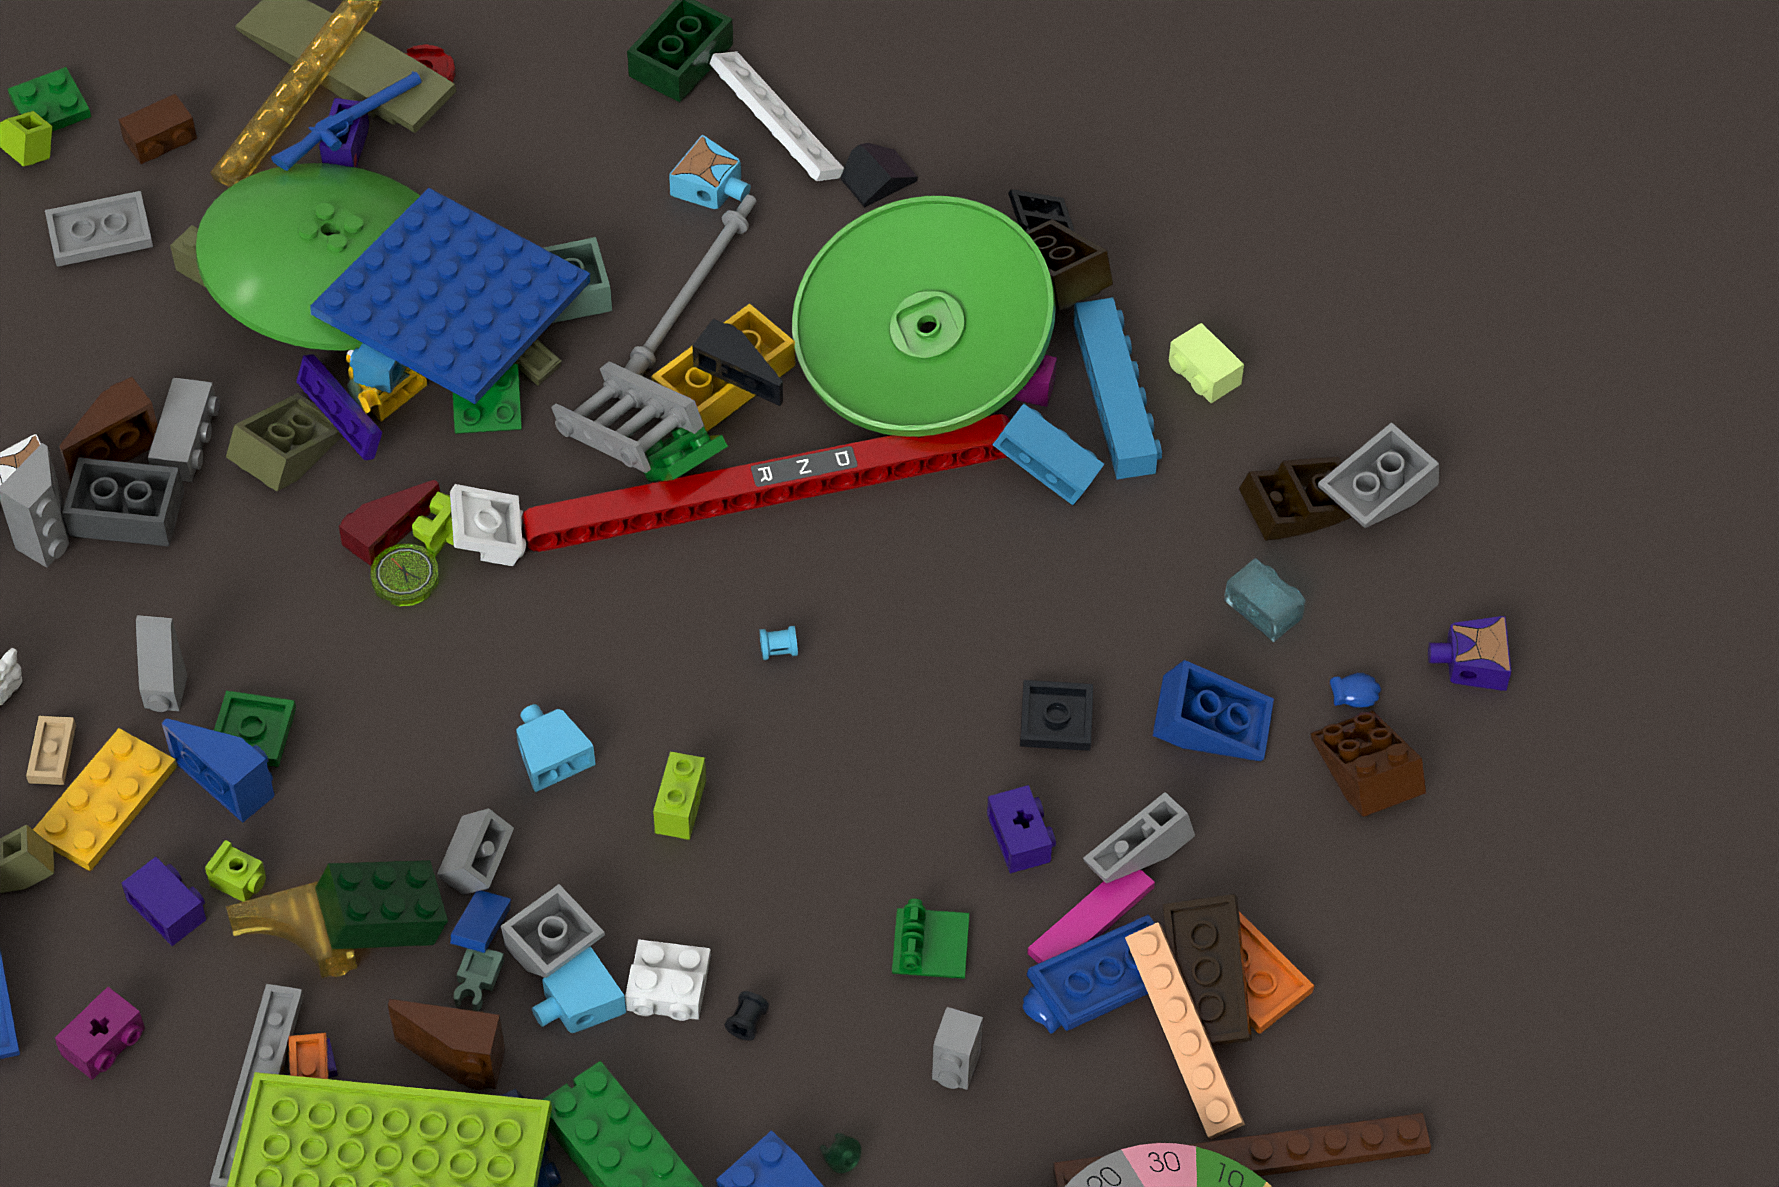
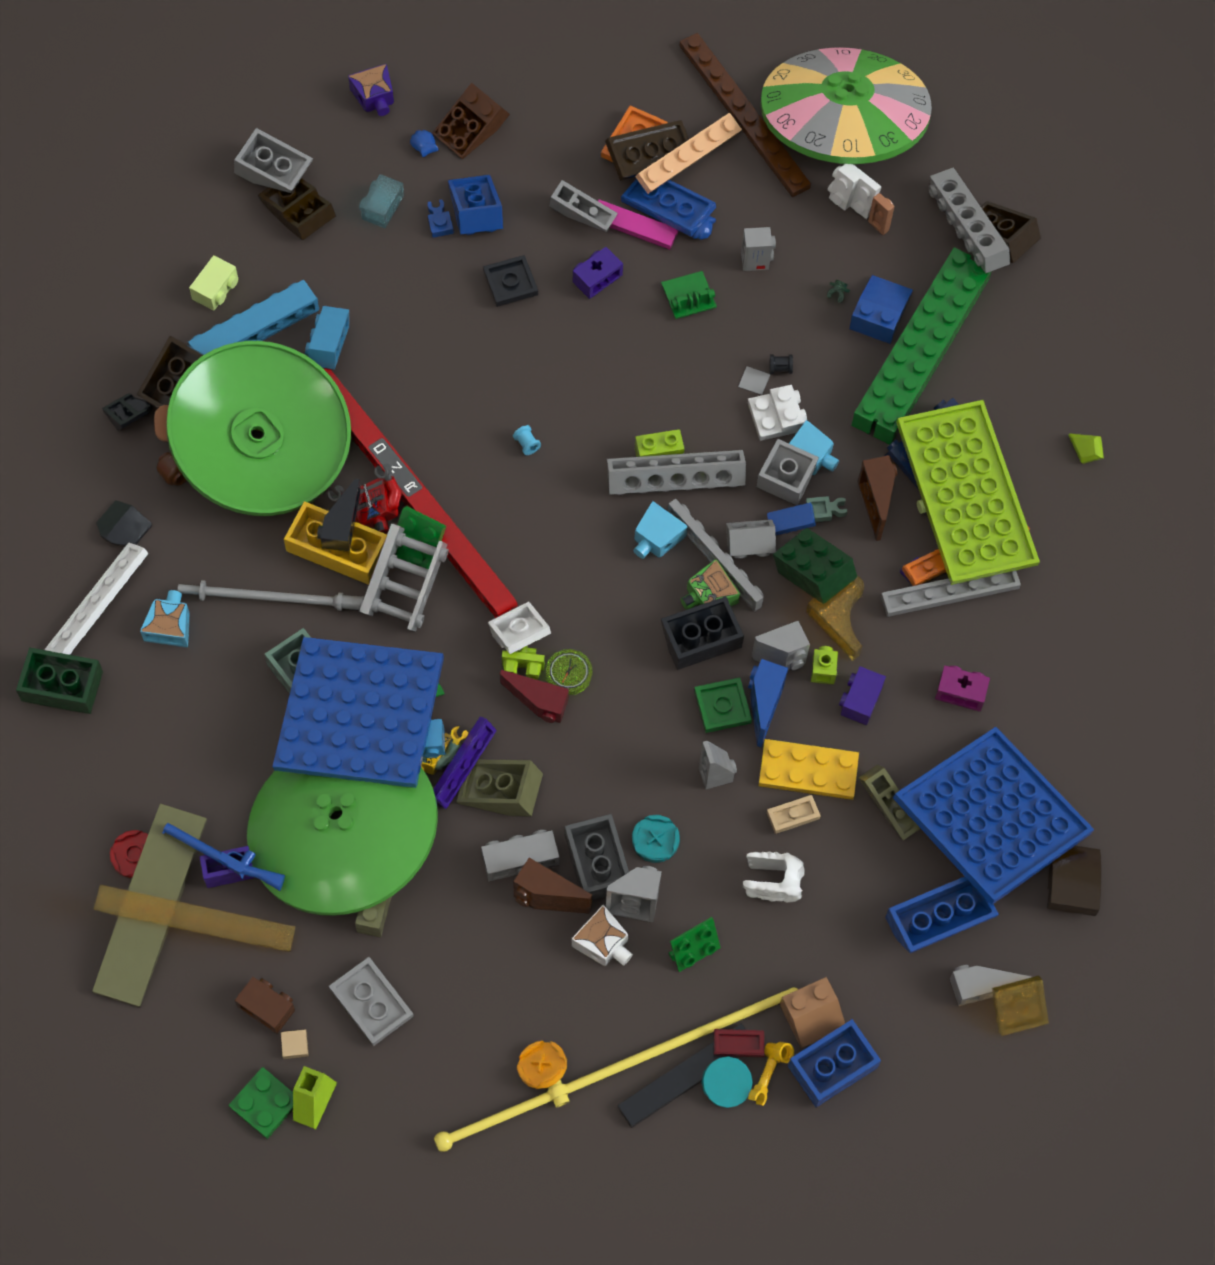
camera: 115 degrees left, 10 degrees up
(98, 148) = (294, 1044): none -> tan tile
(119, 588) = (655, 838): none -> teal tile
(281, 818) = (783, 646): none -> light grey slope
(360, 731) = (702, 633): none -> black slope
(427, 778) = (710, 585): none -> torso
(500, 797) = (710, 548): none -> light grey plate
(627, 797) = (676, 472): none -> light grey brick
(743, 976) = (754, 380): none -> light grey sticker
(762, 426) = (377, 500): none -> red torso
(1209, 660) = (439, 221): none -> blue plate

